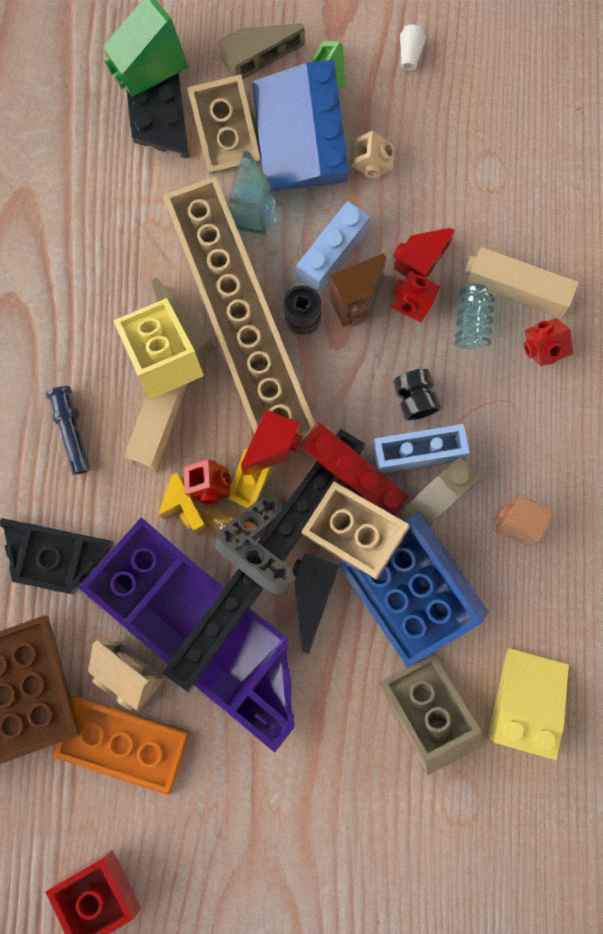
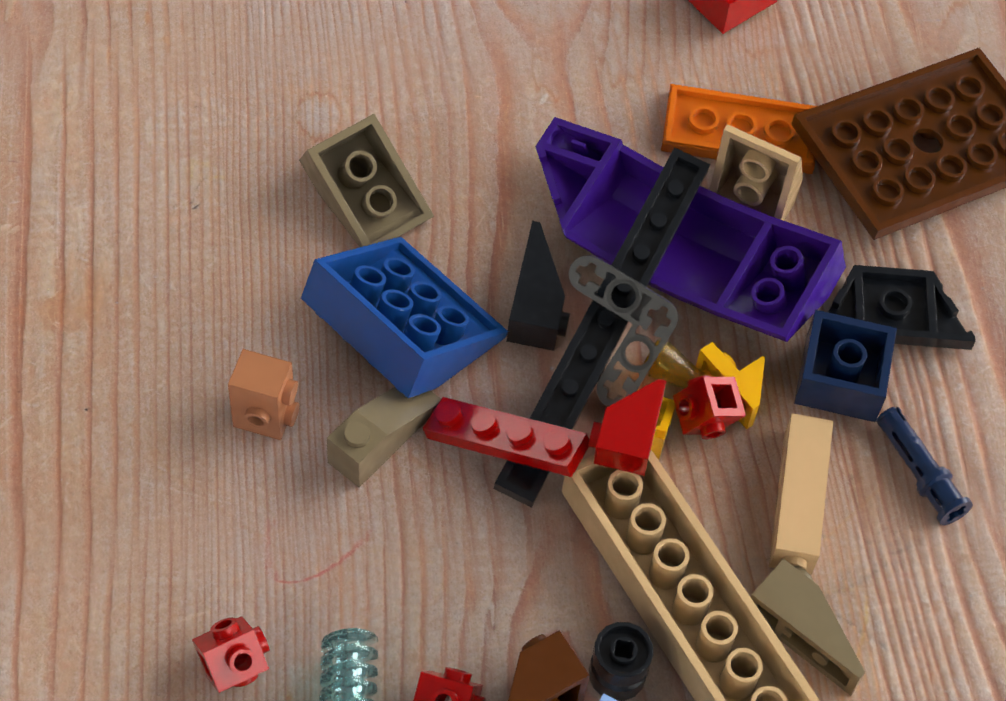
camera: 160 degrees right, 20 degrees down
(101, 503) = (845, 366): none -> dark blue brick
(158, 348) = (827, 557): light yellow slope -> none
(355, 530) = (493, 352): tan slope -> none
(416, 393) = (423, 551): black wheel -> none
(420, 449) = (414, 477): light blue brick -> none
(530, 704) = (241, 205): light yellow slope -> none

